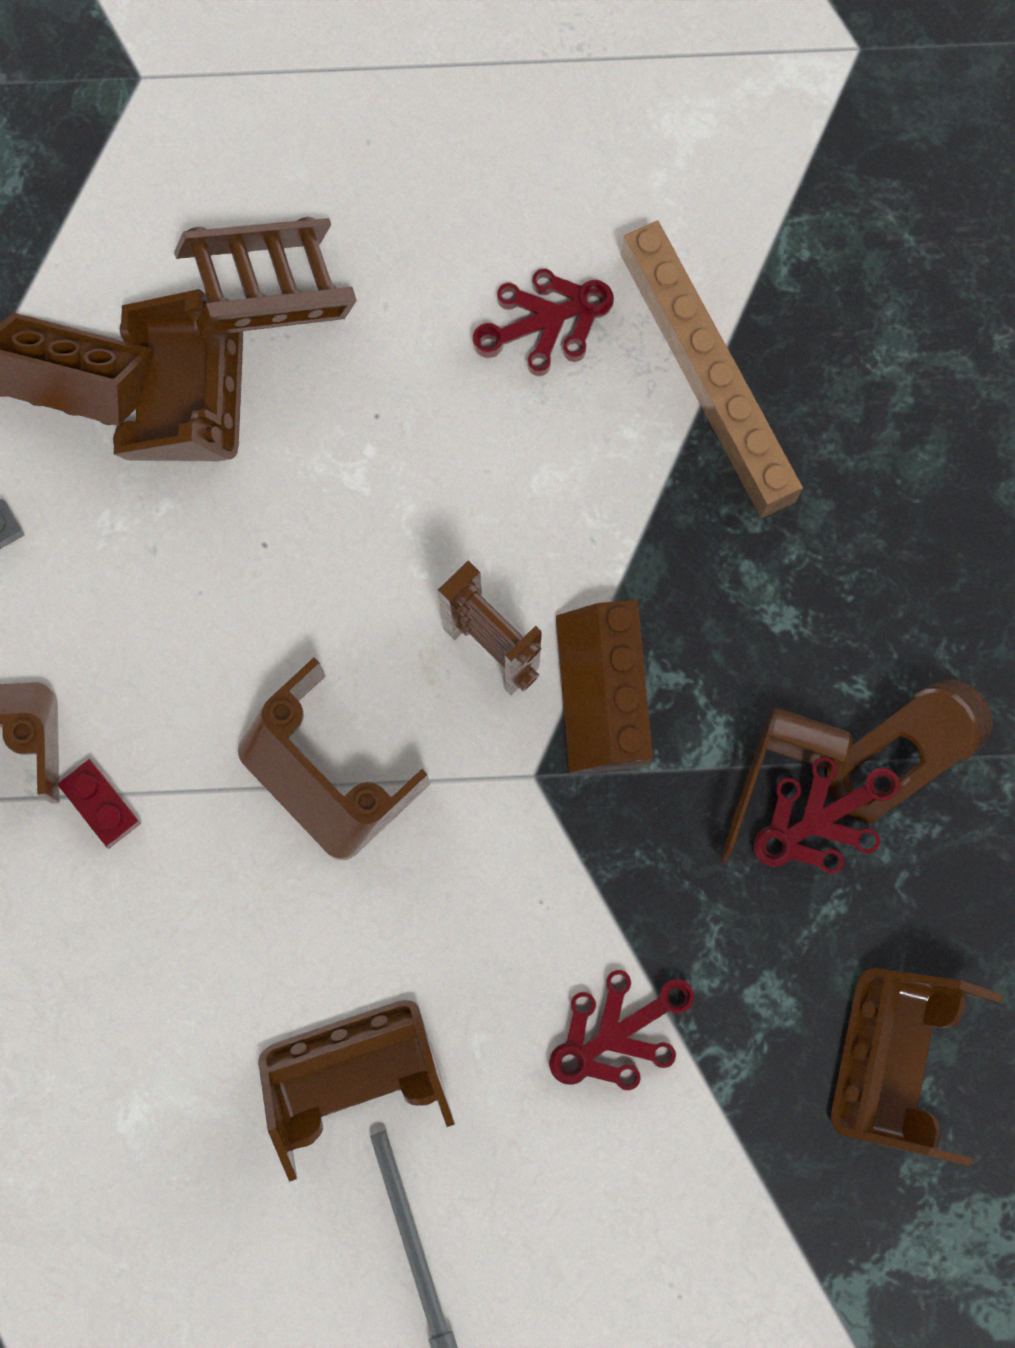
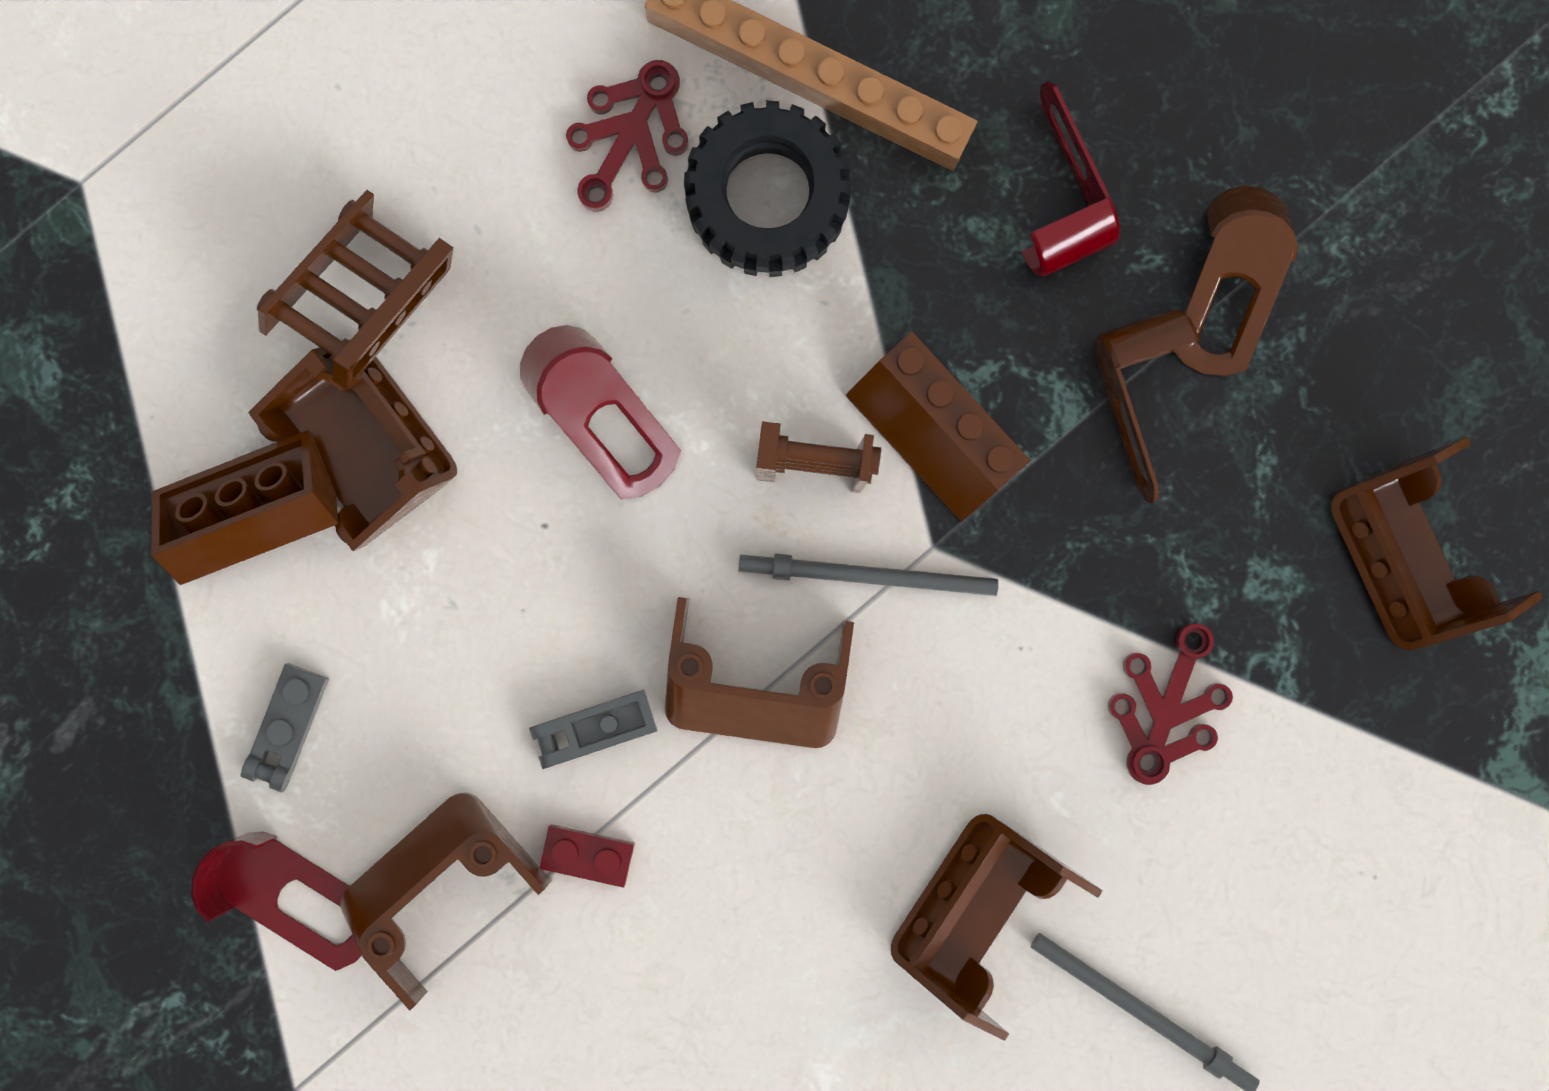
camera: 40 degrees left, 10 degrees up
(181, 714) = (595, 728): none -> dark grey plate
(360, 451) = (574, 378): none -> dark red piece
(412, 705) = (783, 567): none -> dark grey bar
(622, 378) = (769, 132): none -> black tyre
(818, 621) = (1086, 229): none -> dark red piece
(819, 820) = (1205, 401): dark red plant -> none

